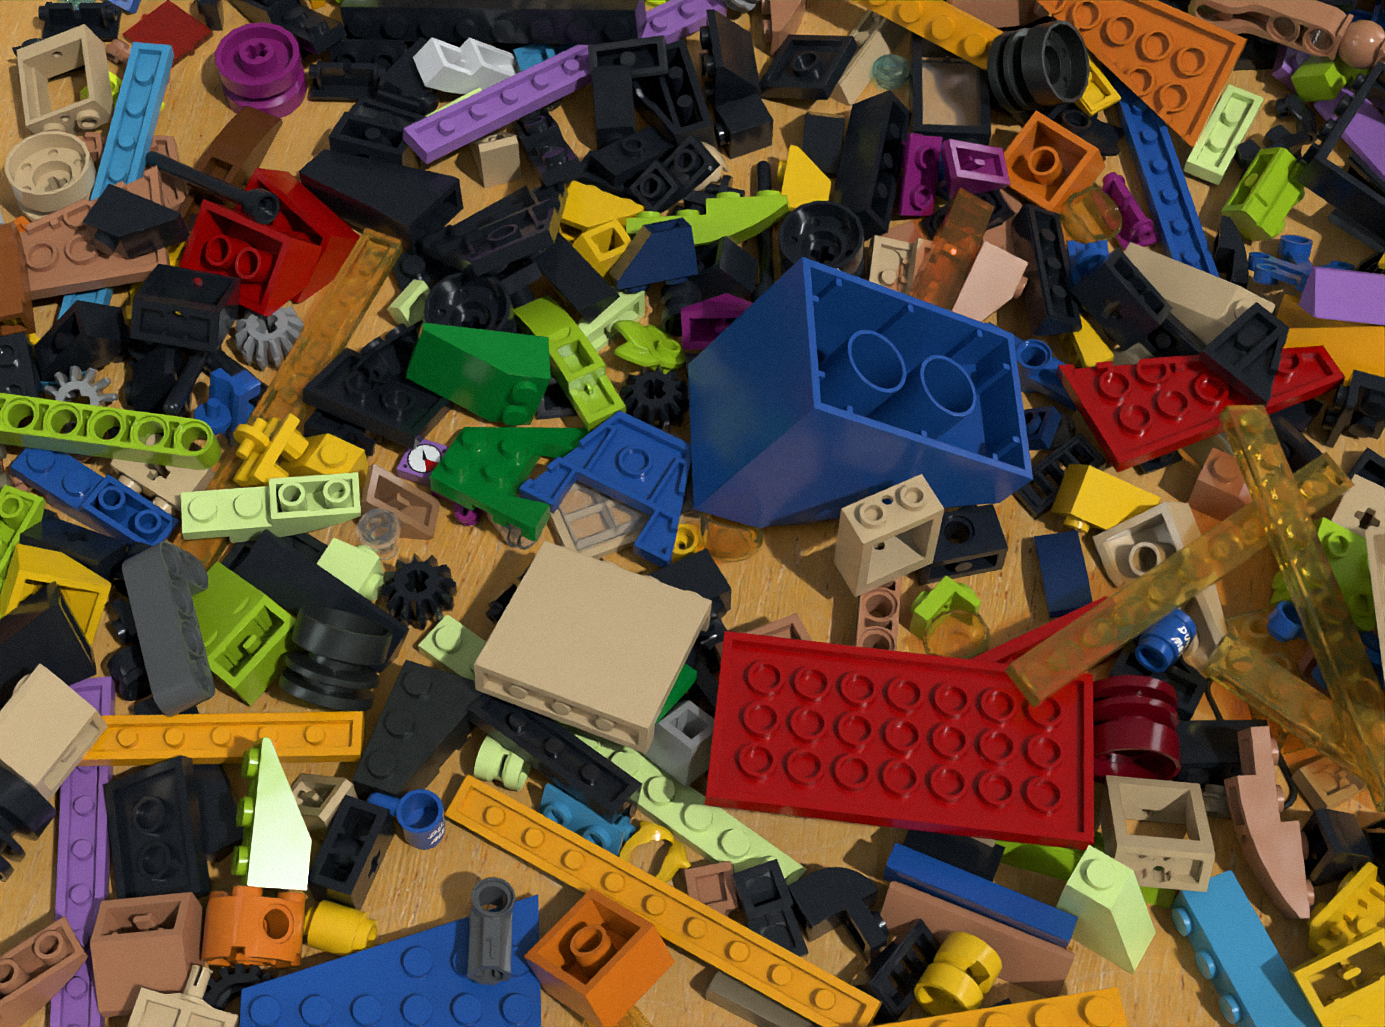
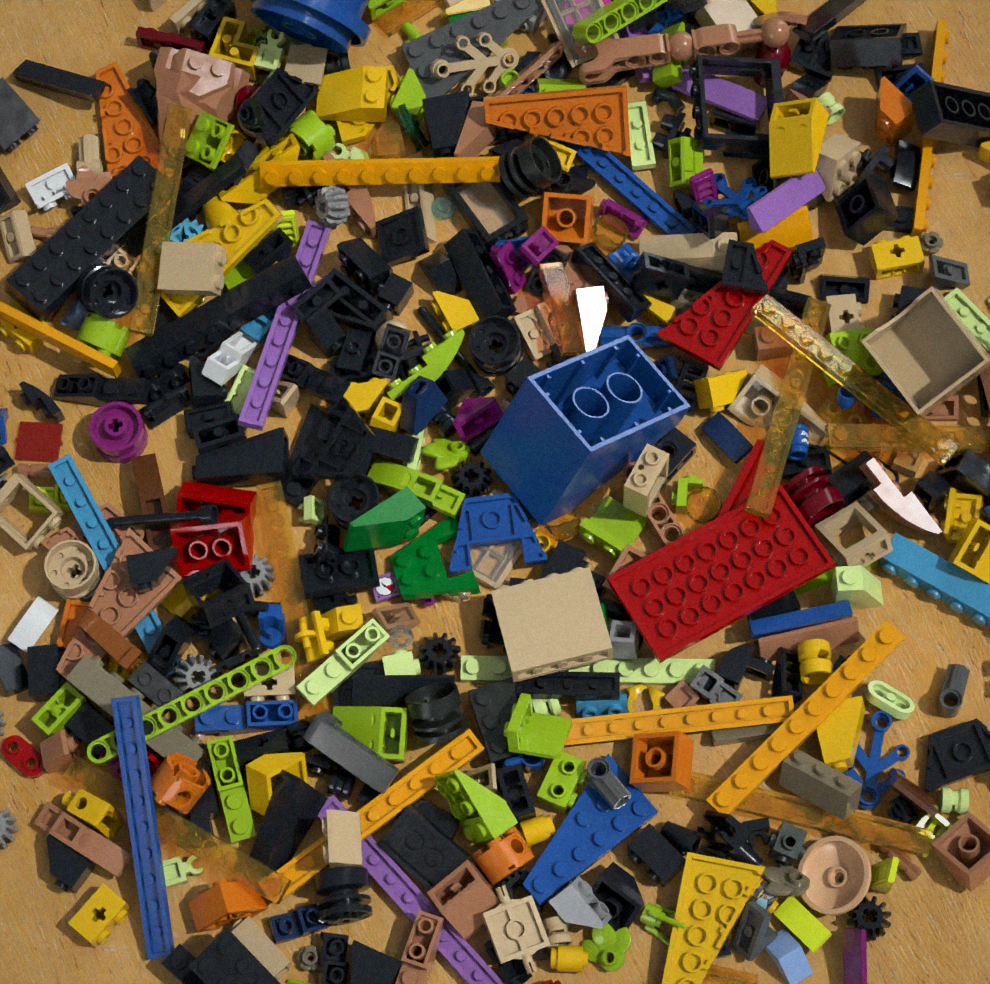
camera: 30 degrees left, 10 degrees up
(433, 885) = (561, 782): none -> lime brick
(442, 777) = (535, 732): none -> lime bracket
(799, 583) = (612, 527): none -> lime bracket
(1251, 266) = (710, 220): none -> black slope
(1279, 244) = (703, 186): none -> magenta slope

